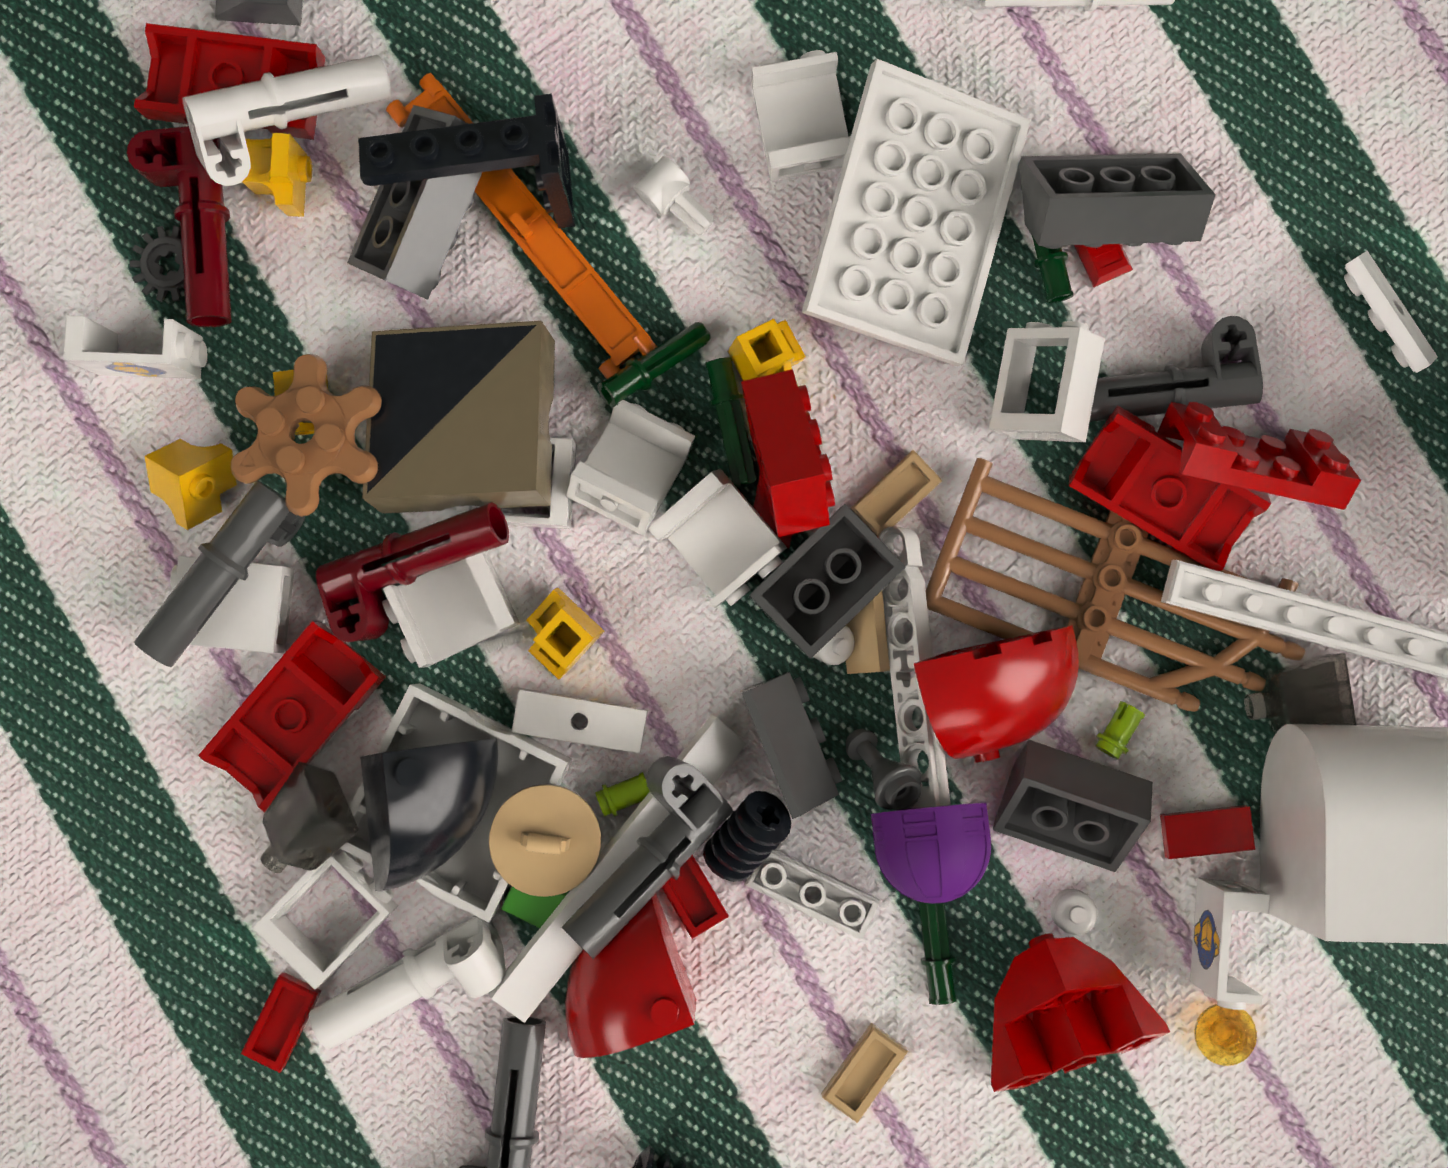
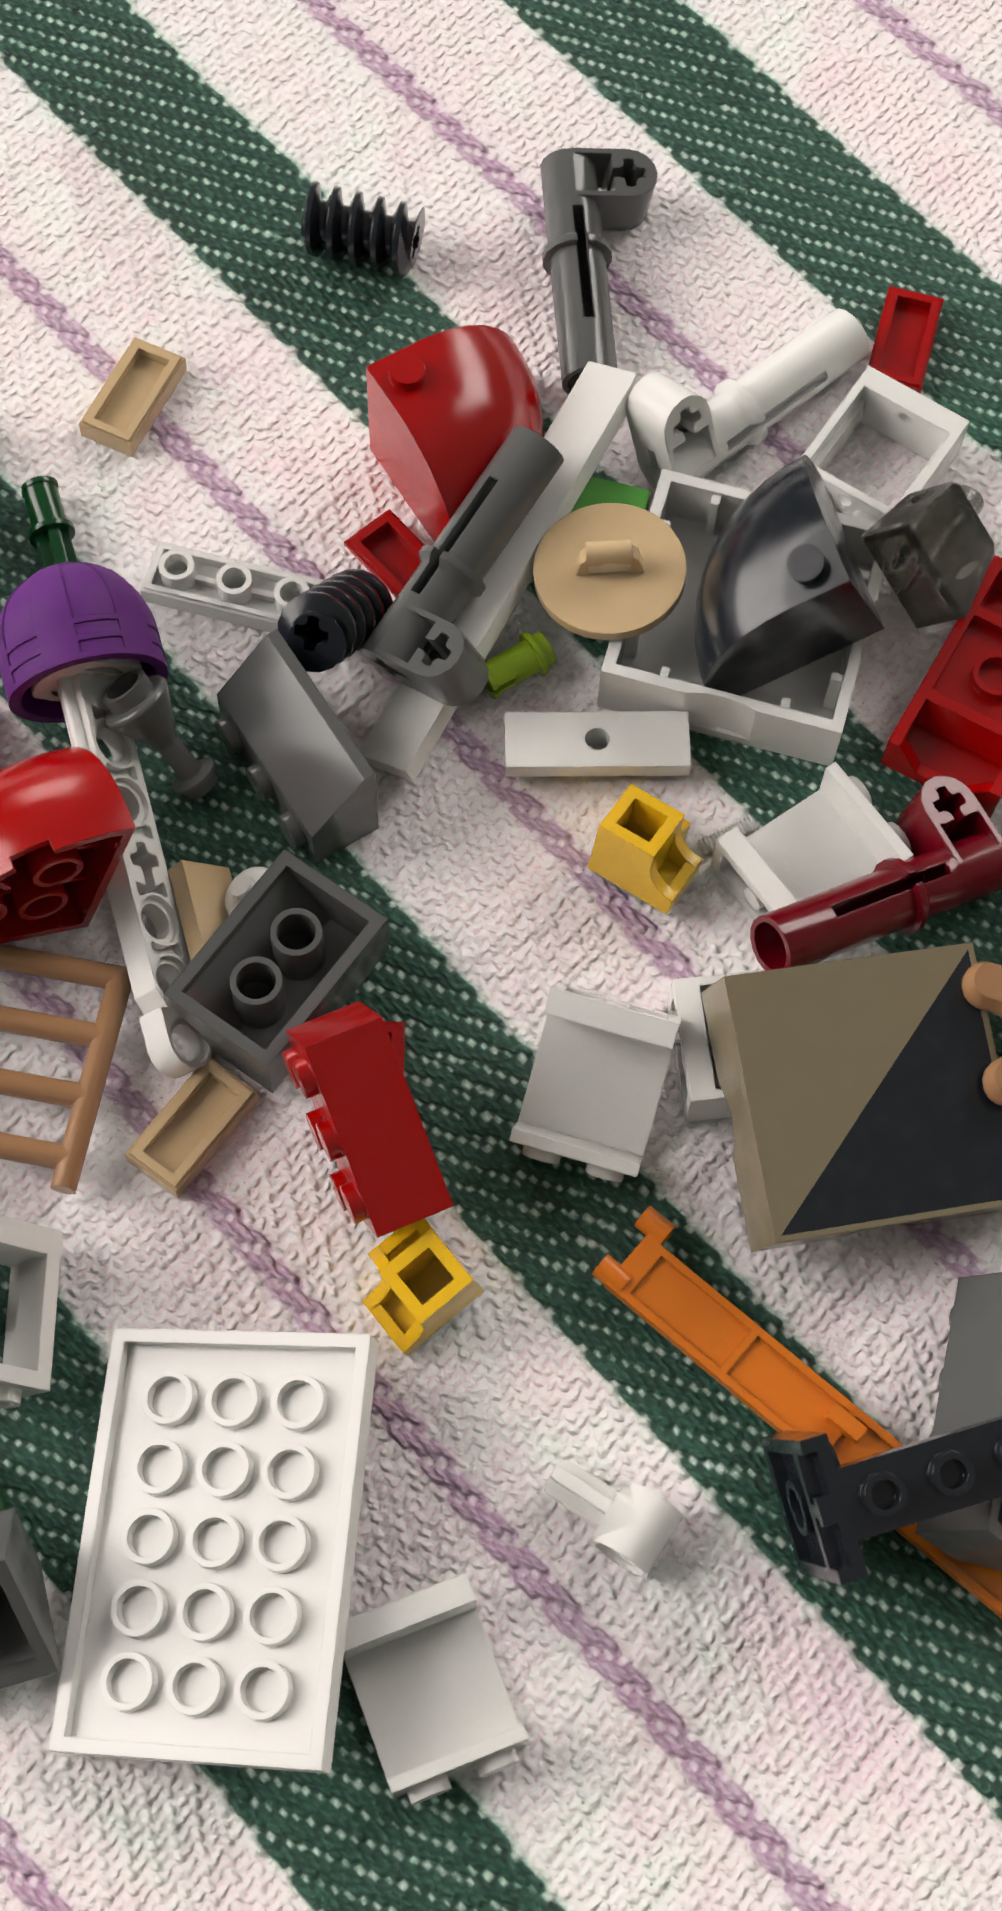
camera: 165 degrees right, 20 degrees down
(641, 372) = (591, 1240): dark green axle -> none
(720, 537) = (442, 1013): white panel -> none
(731, 421) = (471, 1211): dark green axle -> none

